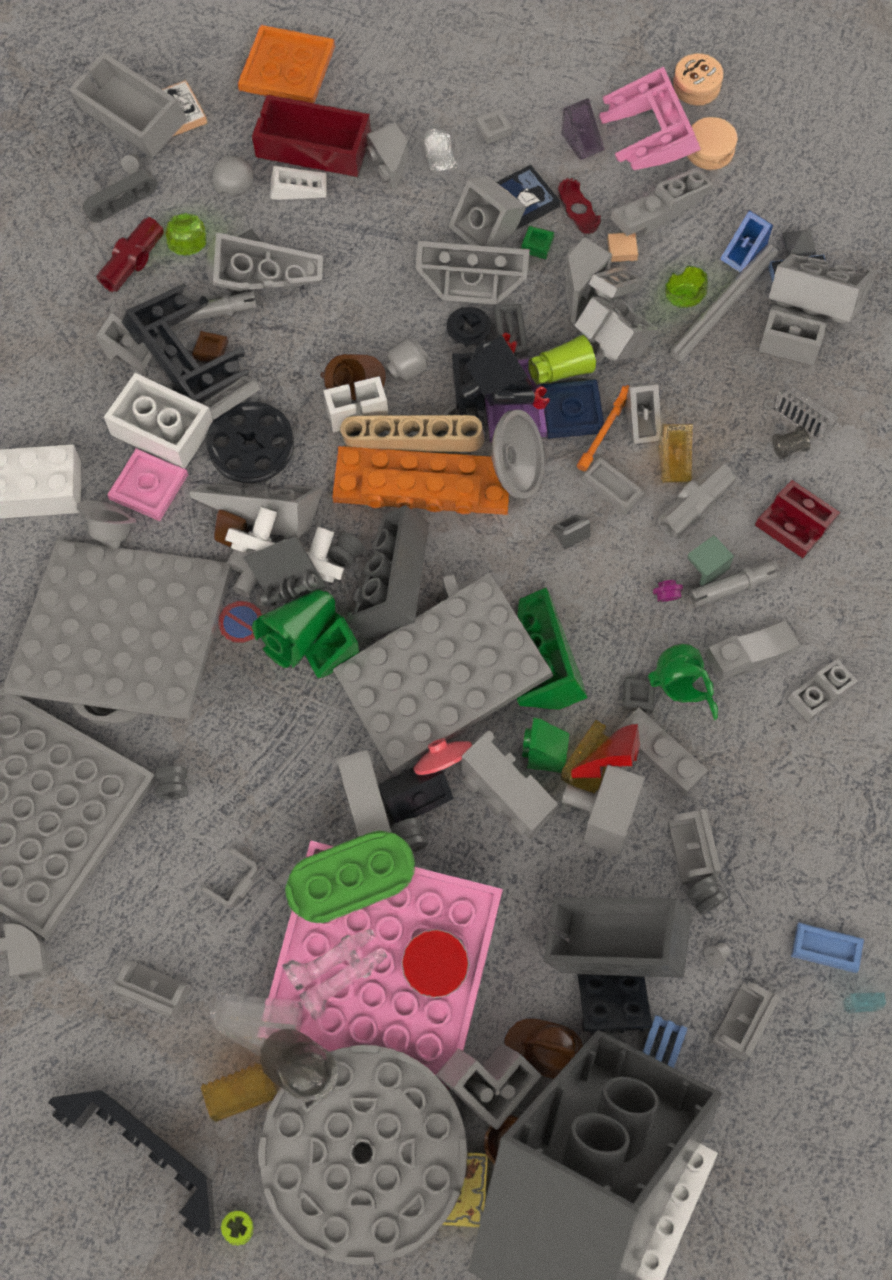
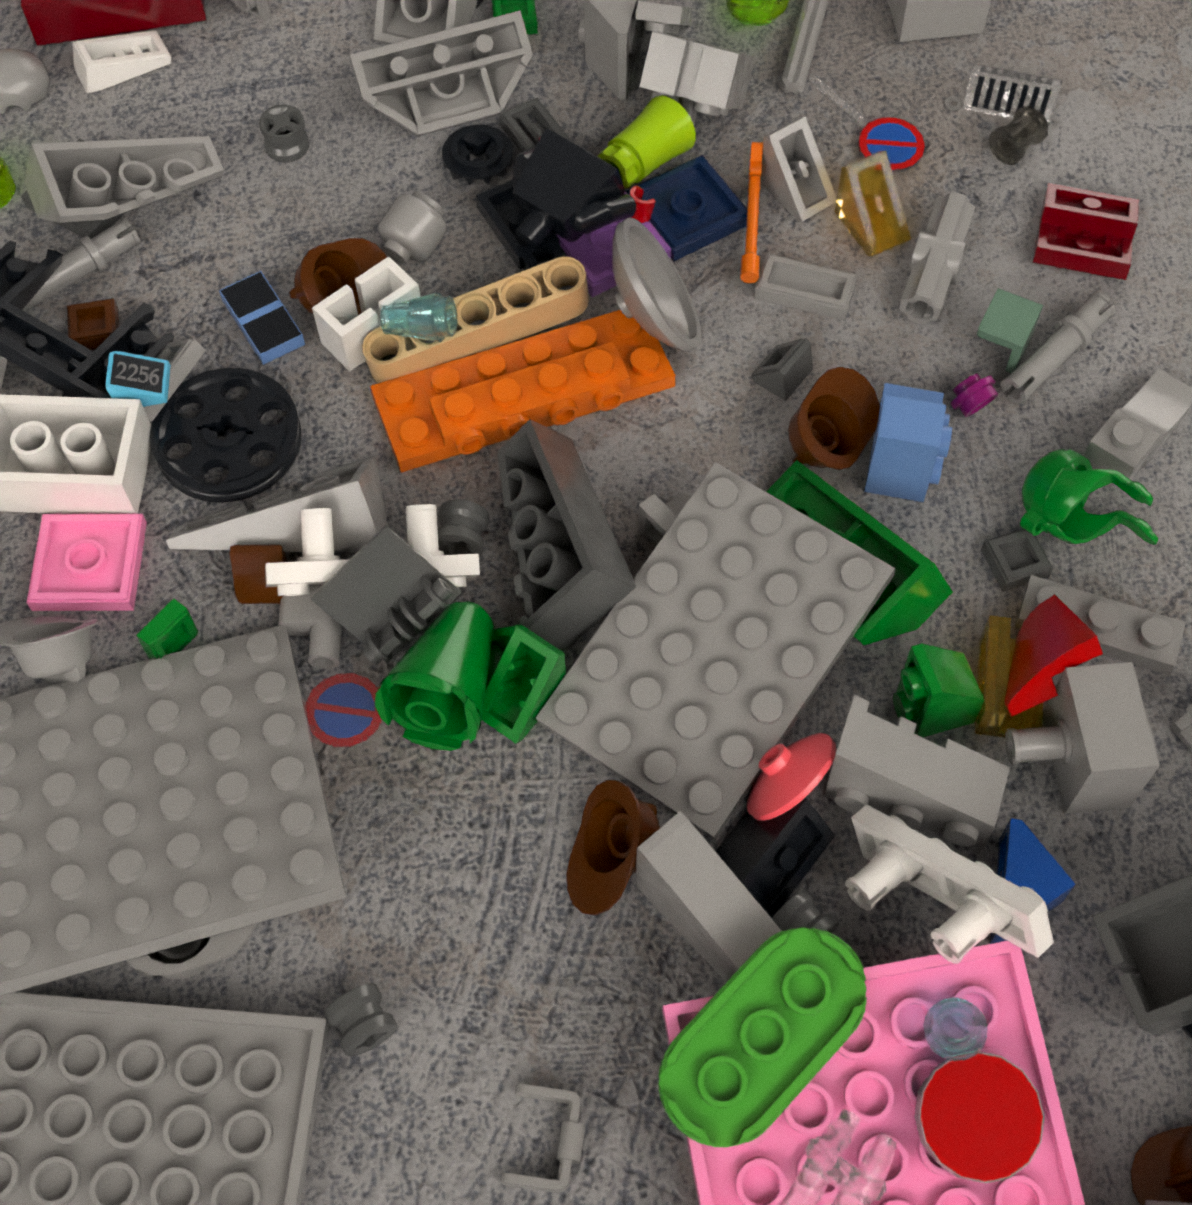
camera: 25 degrees left, 5 degrees down
(169, 541) = (168, 631): none -> green tile
(214, 394) = (138, 378): none -> slope
(301, 380) = (262, 317): none -> black tile
(338, 743) = (607, 846): none -> reddish brown piece
(370, 265) = (284, 133): none -> dark grey wheel
(379, 422) = (422, 317): none -> clear light blue cone
(444, 916) = (955, 1029): none -> clear light blue plate
(494, 854) = (978, 895): none -> white plate
(534, 869) = (1029, 864): none -> blue slope
(578, 573) = (834, 420): none -> reddish brown piece
(610, 602) = (908, 443): none -> medium blue brick
(713, 414) = (896, 136): none -> piece

